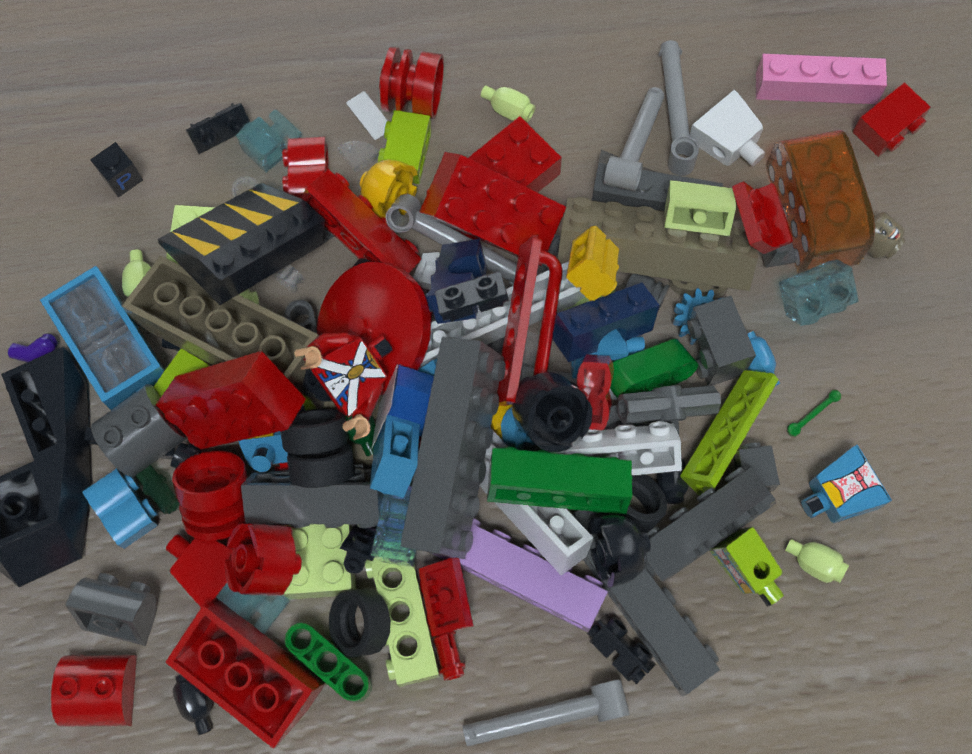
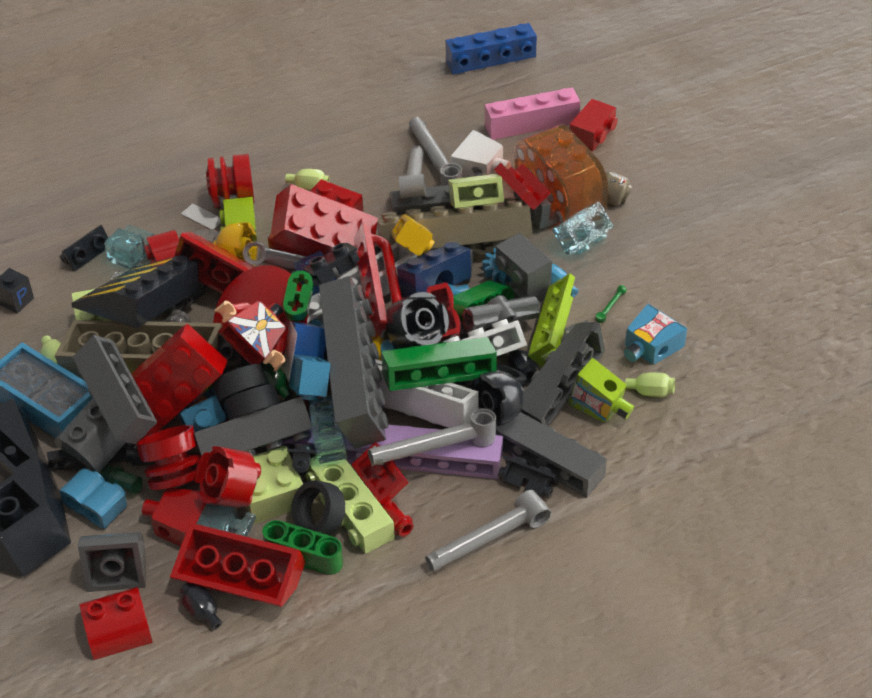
camera: 20 degrees left, 25 degrees down
(160, 404) = (114, 390): none -> dark grey brick
(408, 331) = (303, 297): none -> green beam
(521, 584) = (480, 431): none -> light grey piece

